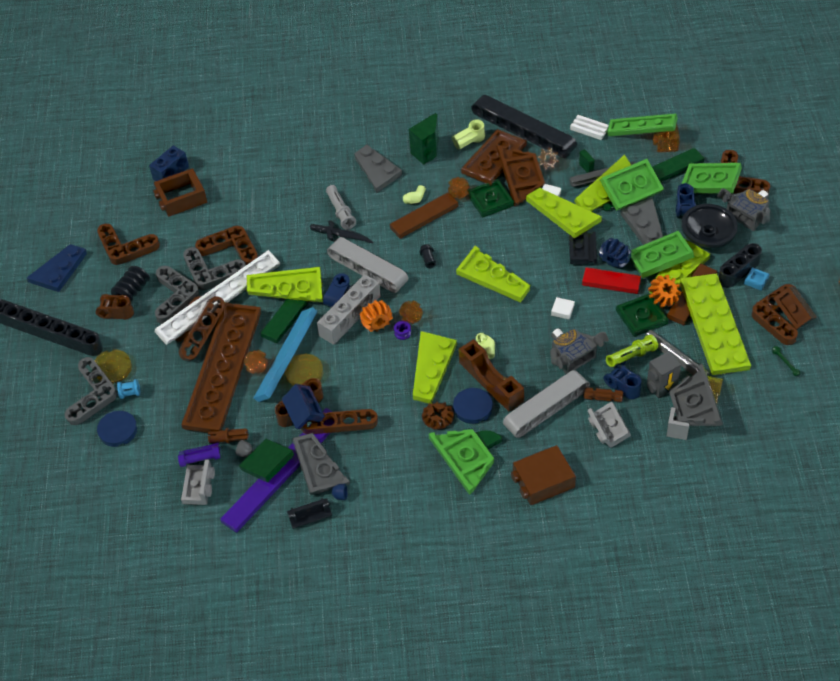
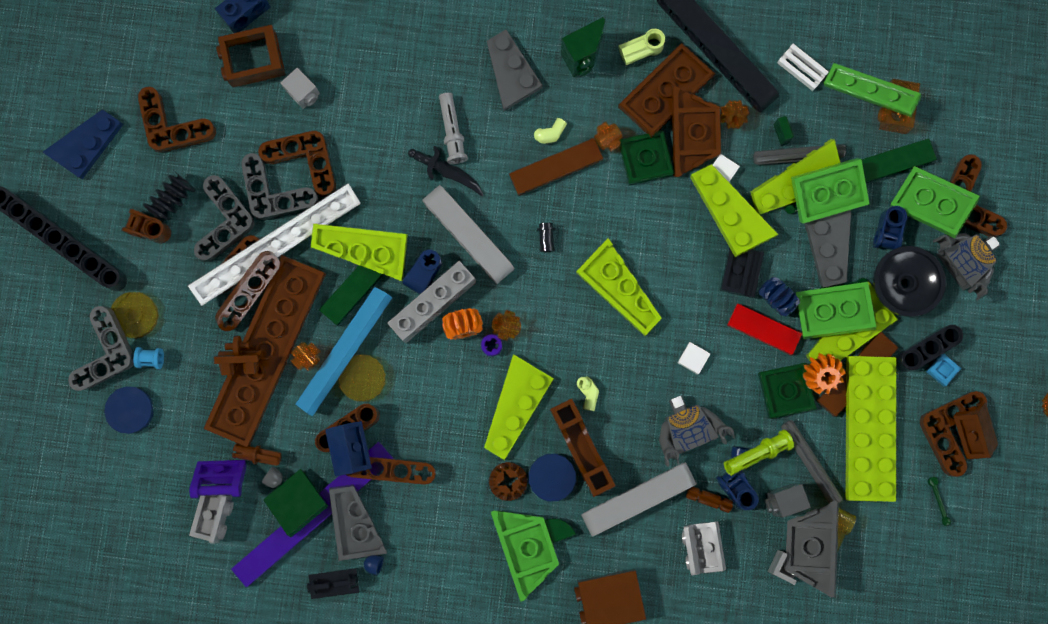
camera: 10 degrees right, 30 degrees up
(202, 364) = (249, 358): none -> reddish brown hips
(220, 203) = (300, 88): none -> light grey brick

